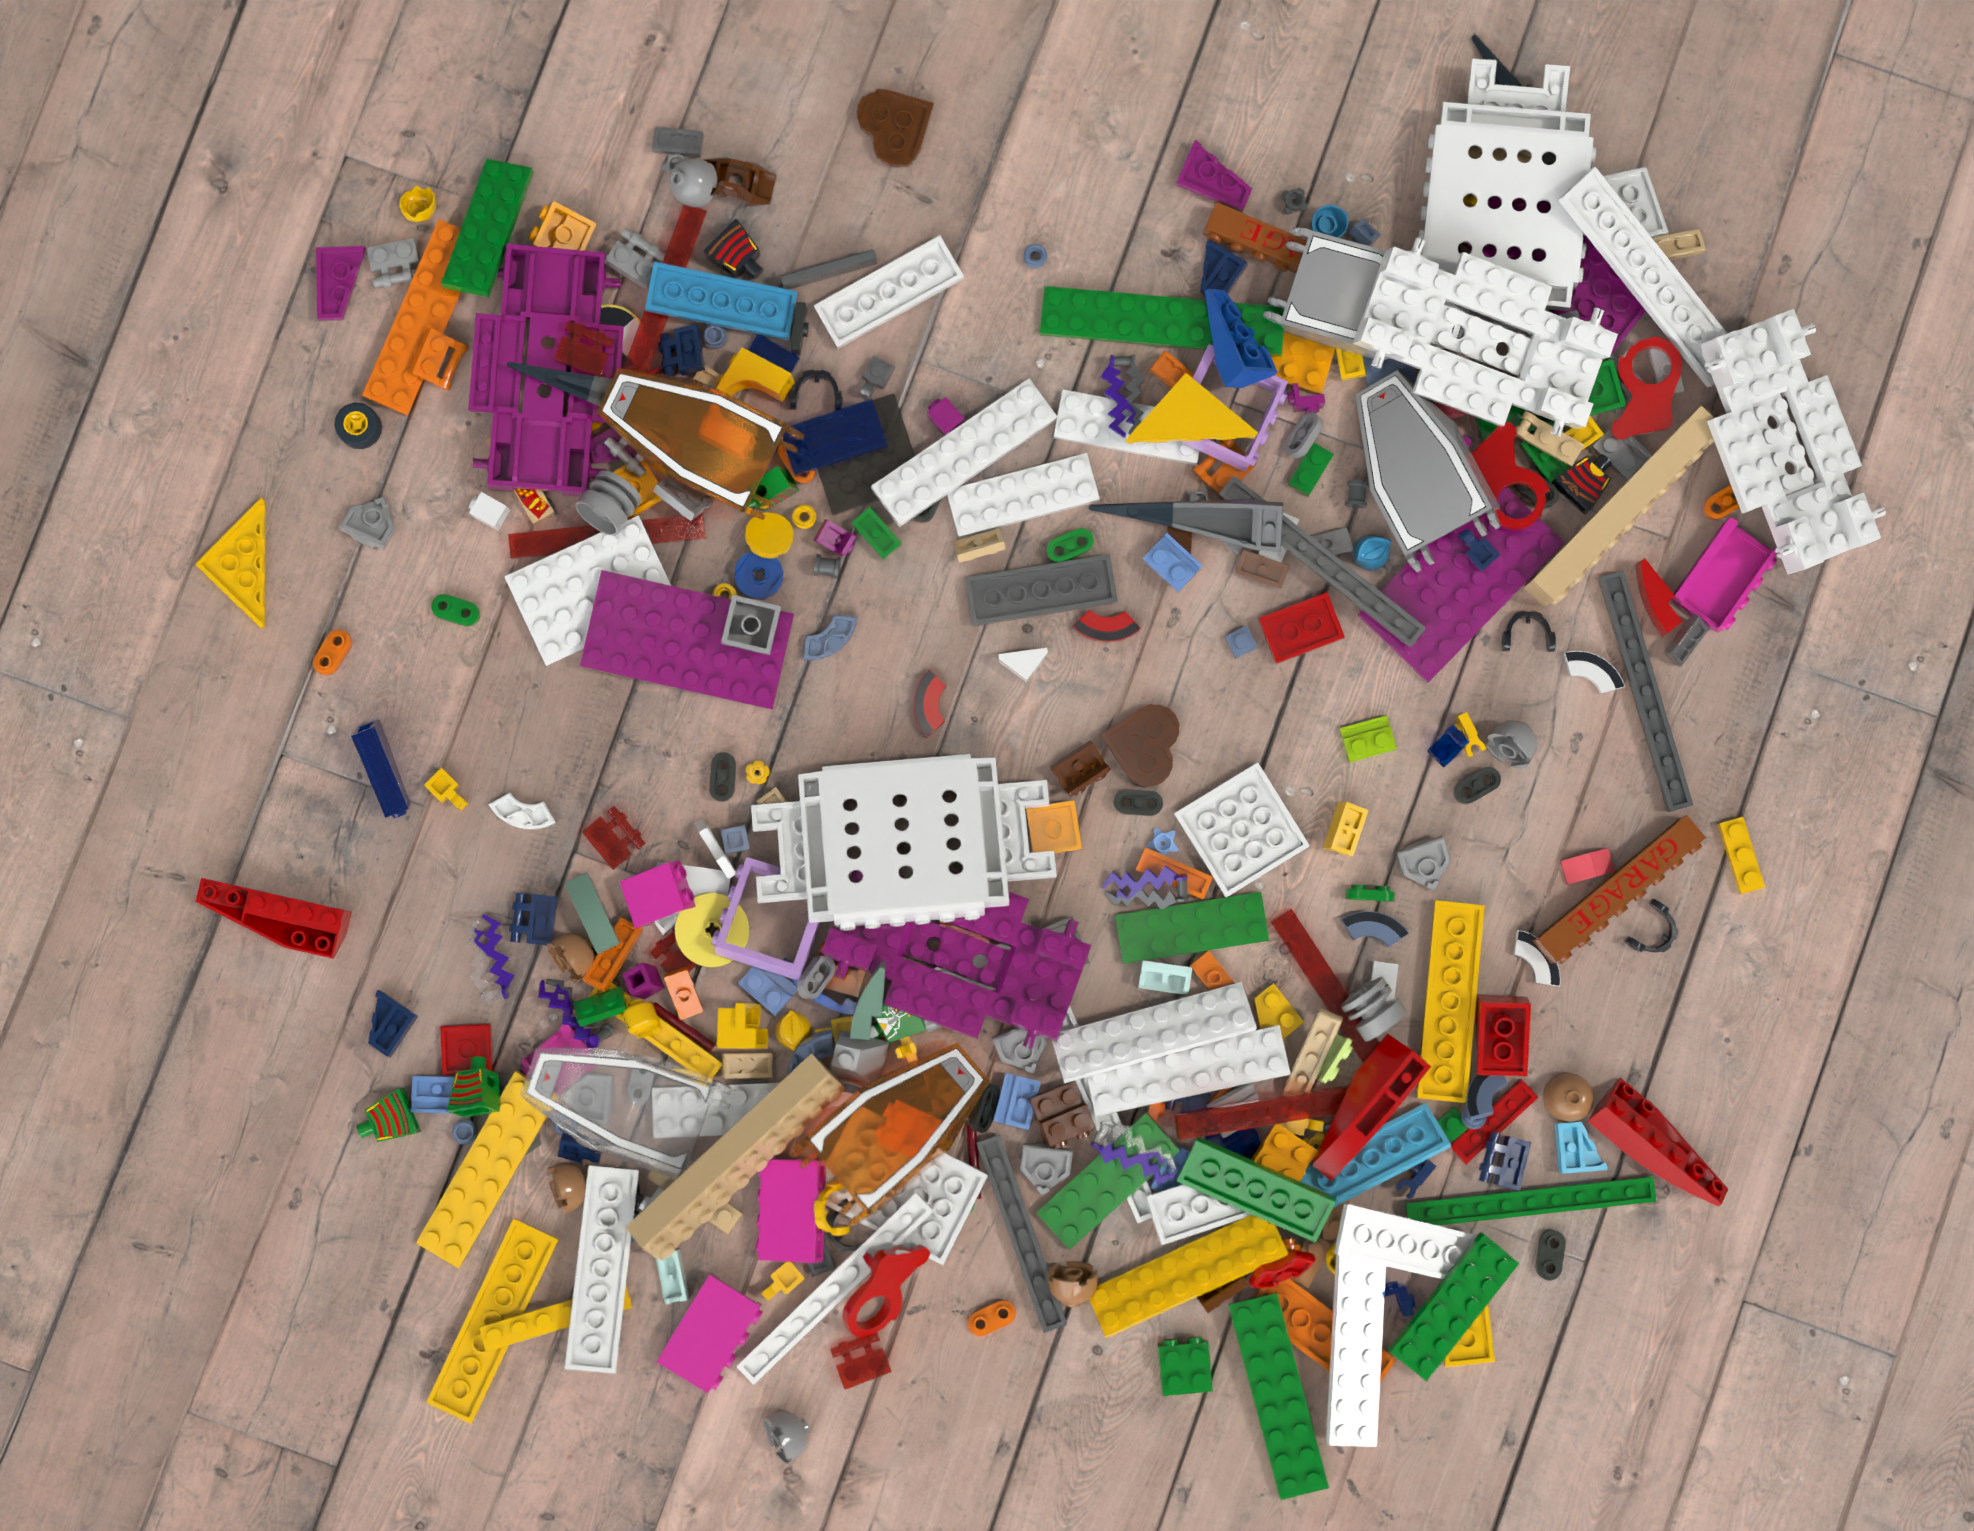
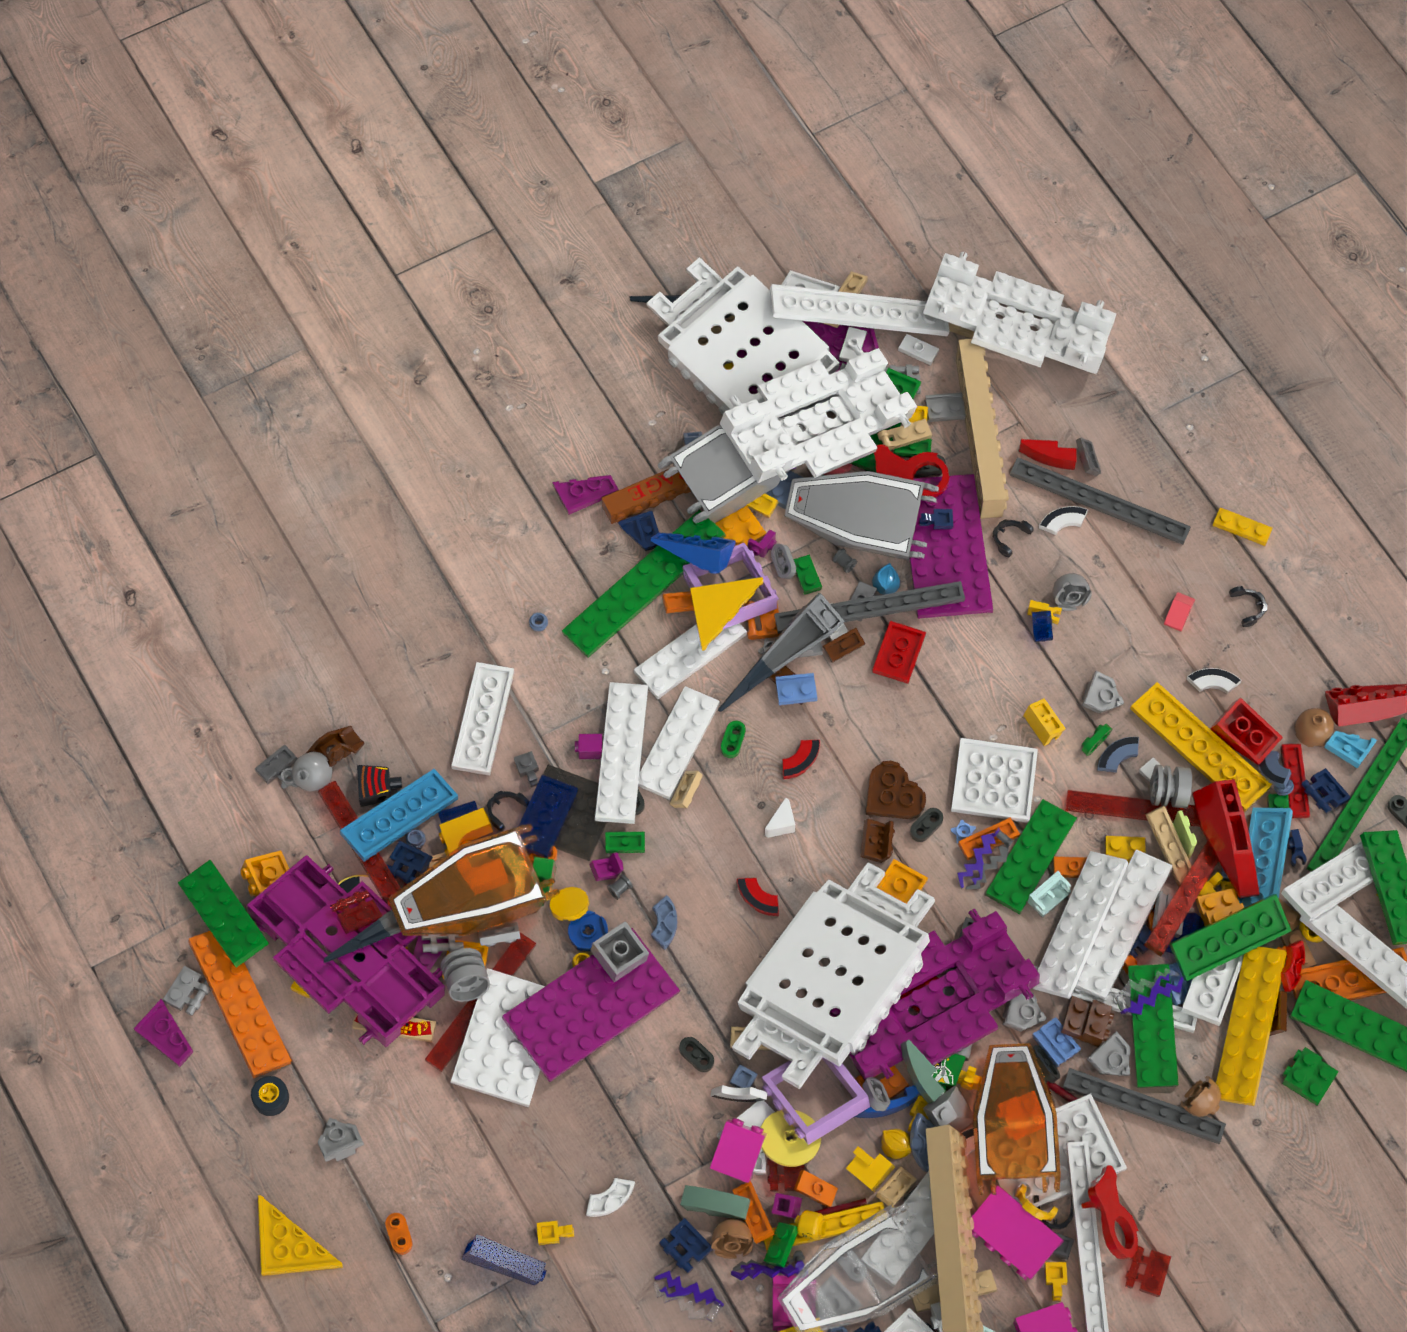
camera: 50 degrees left, 20 degrees down
(418, 204) = (167, 944): yellow hair -> none
(430, 356) = (270, 1014): orange plate -> none
(455, 609) = (443, 1134): green plate -> none
(488, 511) = (398, 1059): white brick -> none
(608, 843) = (677, 1158): clear red plate -> none
(629, 262) = (325, 849): light grey plate -> none
(761, 777) = (712, 1037): yellow plate -> none
(768, 988) = (855, 1133): medium blue plate -> none
(798, 511) = (575, 871): yellow plate -> none
(800, 328) = (457, 785): pearl dark grey plate -> none
(829, 269) = (438, 740): dark grey tile -> none
(896, 124) = (386, 635): reddish brown plate -> none
(991, 1317) = (1185, 1168): orange plate -> none
(1041, 590) = (745, 777): dark grey plate -> none
(1123, 403) = (649, 635): piece -> none
(1241, 642) = (877, 692): sand blue plate -> none
(1297, 194) = (638, 455): dark grey plate -> none
(1330, 221) = (667, 447): dark azure hat -> none
(1368, 739) = (999, 669): lime plate -> none
(1404, 1299) = (1367, 914): clear blue bracket -> none
(1476, 785) = (1079, 632): pearl dark grey plate -> none
(1584, 482) = (948, 438): torso -> none
(1611, 301) = (853, 337): none -> white plate
(1619, 889) = (1209, 603): dark orange brick -> none
(1650, 403) = (932, 368): red animal -> none
(1724, 501) = (1023, 377): orange plate -> none
(1724, 576) = (1067, 409): dark pink panel -> none

